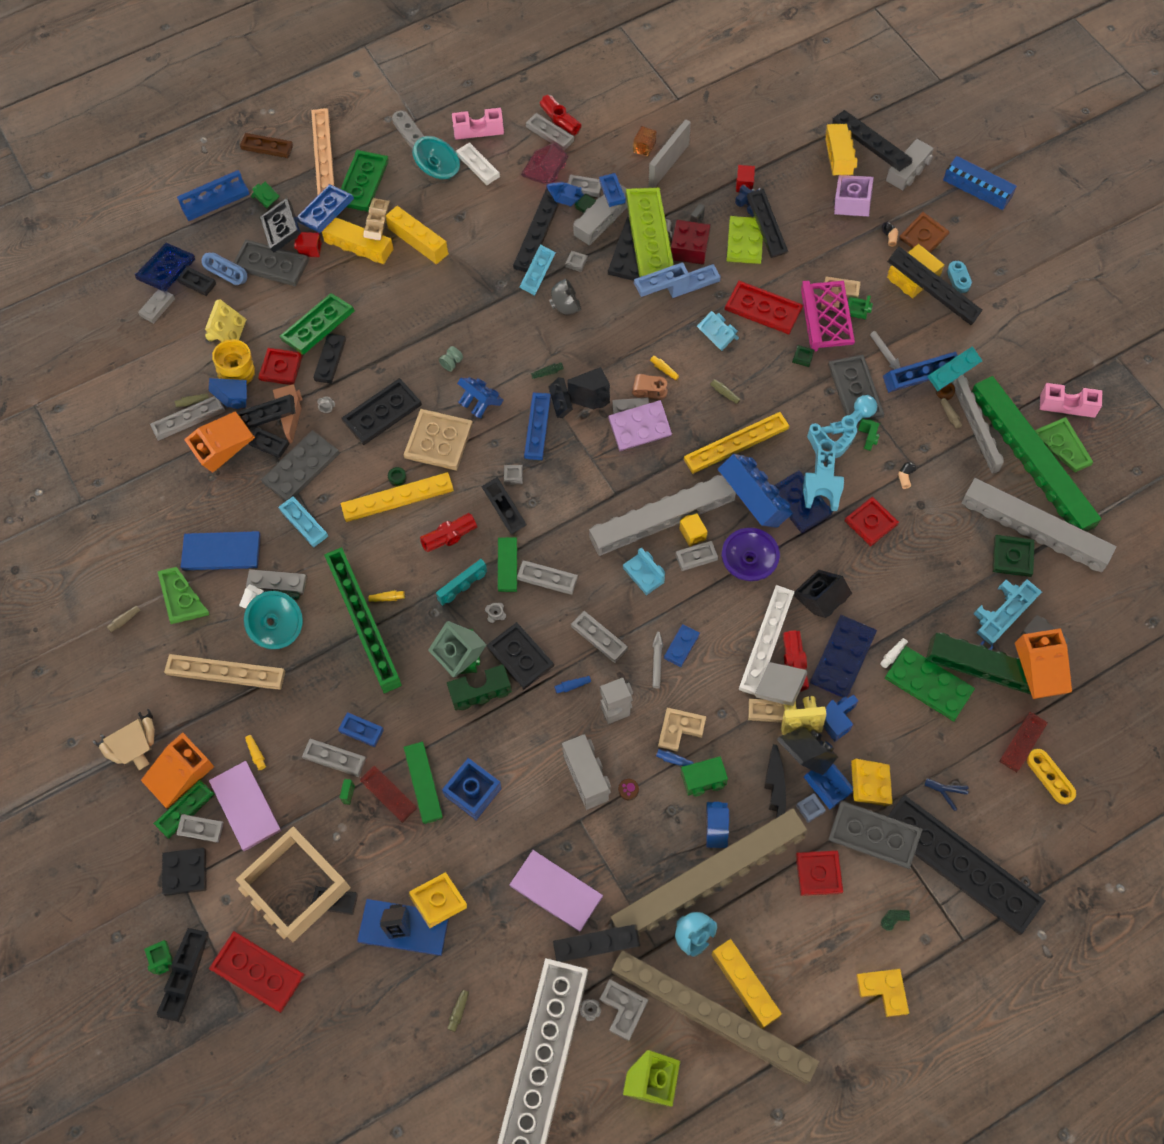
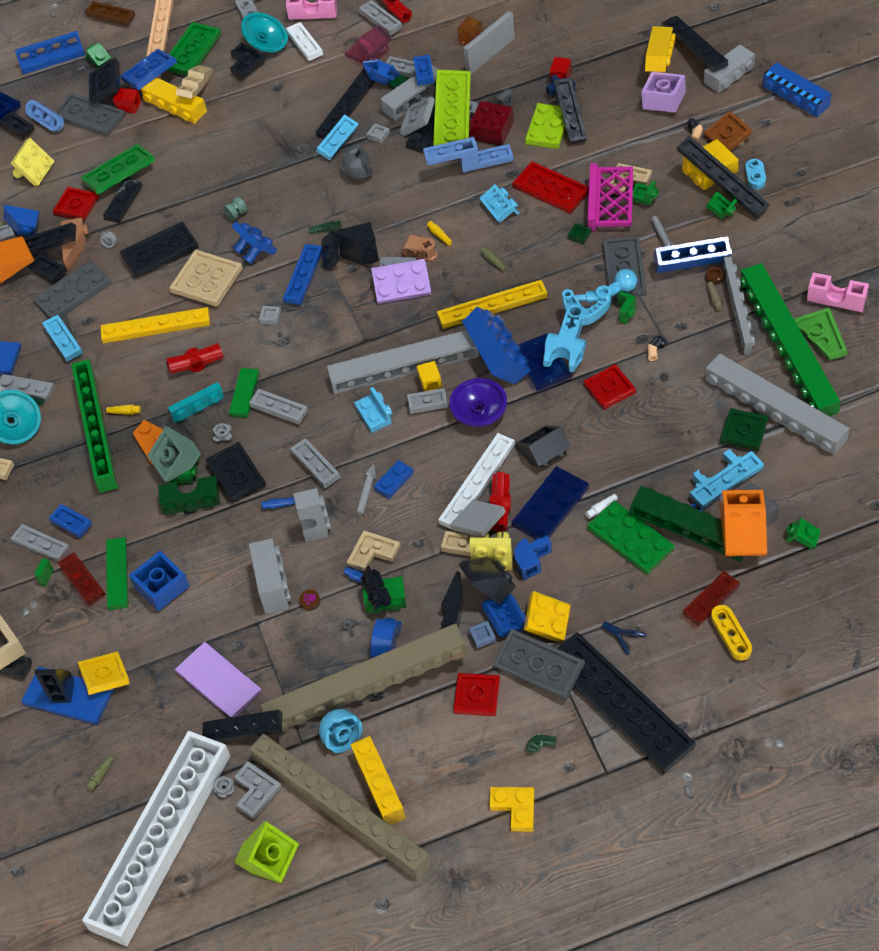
camera: 15 degrees right, 10 degrees down
(233, 361) = (32, 193): yellow wheel -> none
(397, 476) = (159, 307): dark green tile -> none
(416, 234) = (230, 99): yellow brick -> none
(423, 626) = (146, 436): none -> orange wing
(424, 188) = (247, 59): none -> black plate
(504, 505) = (252, 338): black slope -> none
(615, 240) = (417, 116): none -> light grey tile
(693, 769) = (372, 581): none -> black hinge
(936, 315) = (720, 205): none -> green bracket
(954, 368) = (722, 252): teal plate -> none
(1094, 661) = (803, 532): none -> green bracket

